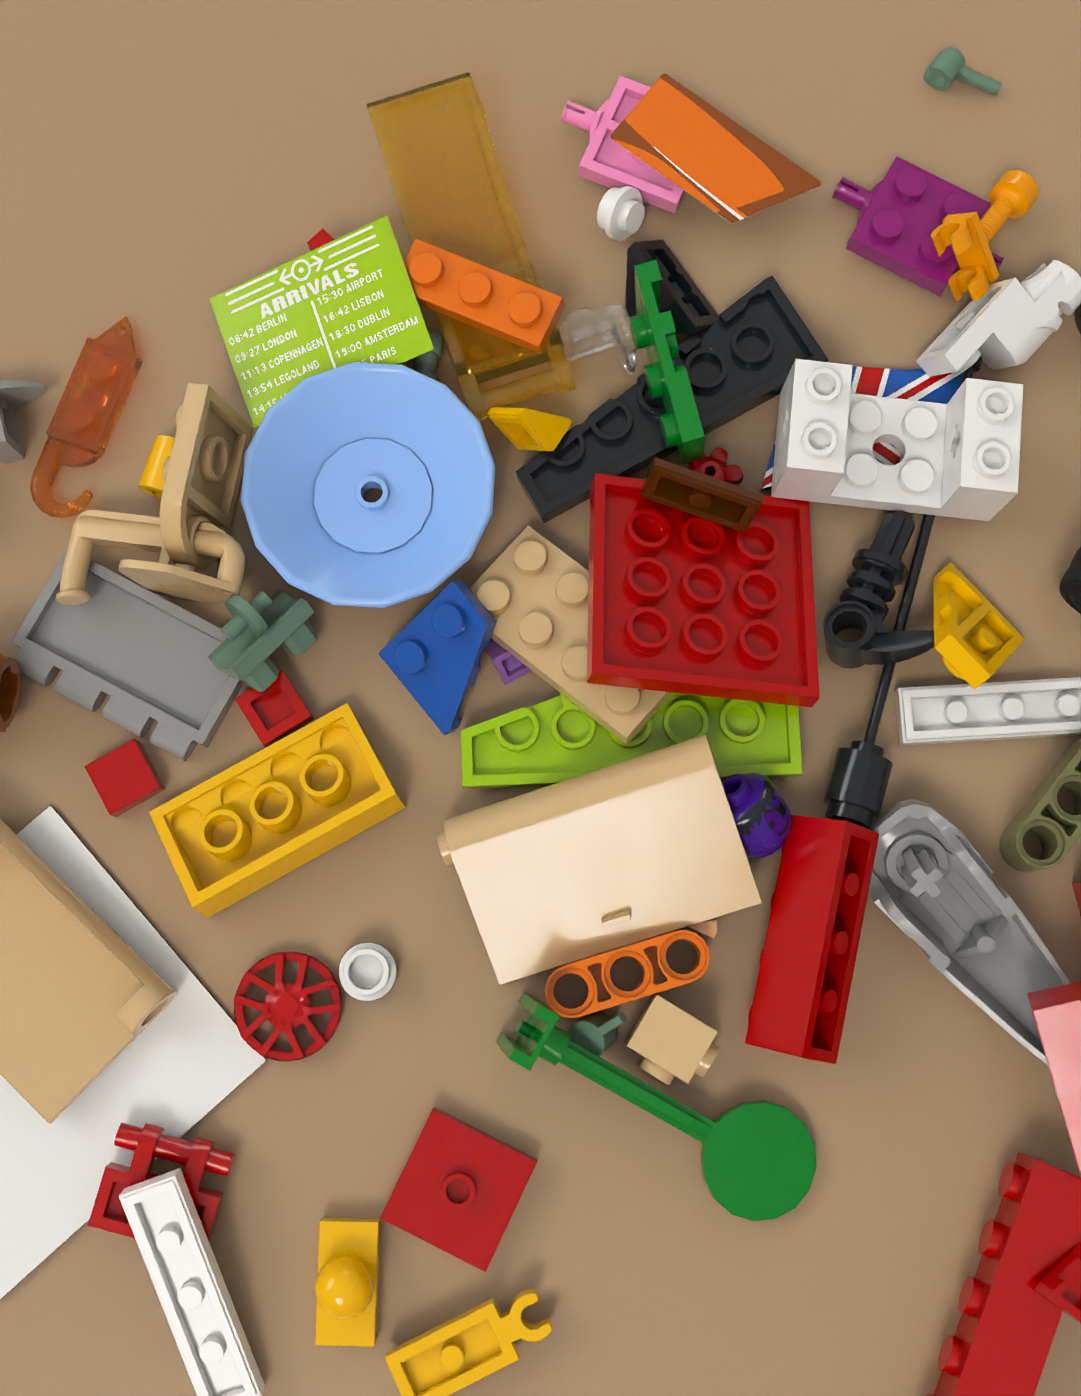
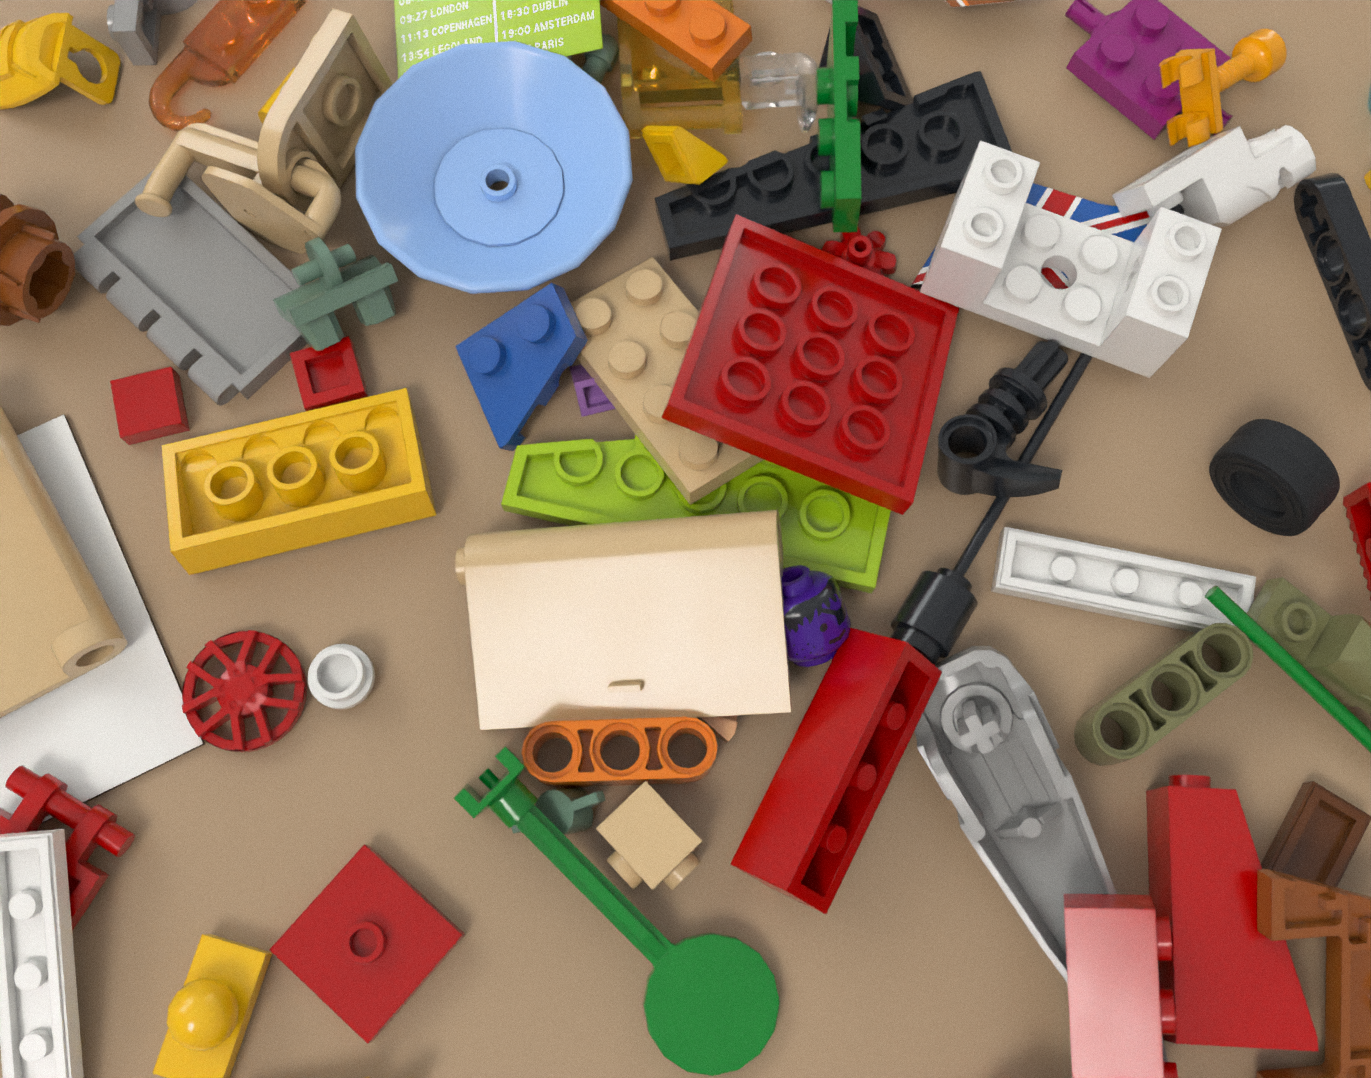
camera: 10 degrees right, 5 degrees down
(700, 495) = (842, 261): reddish brown slope -> none
(969, 629) = (1099, 483): yellow wing -> none

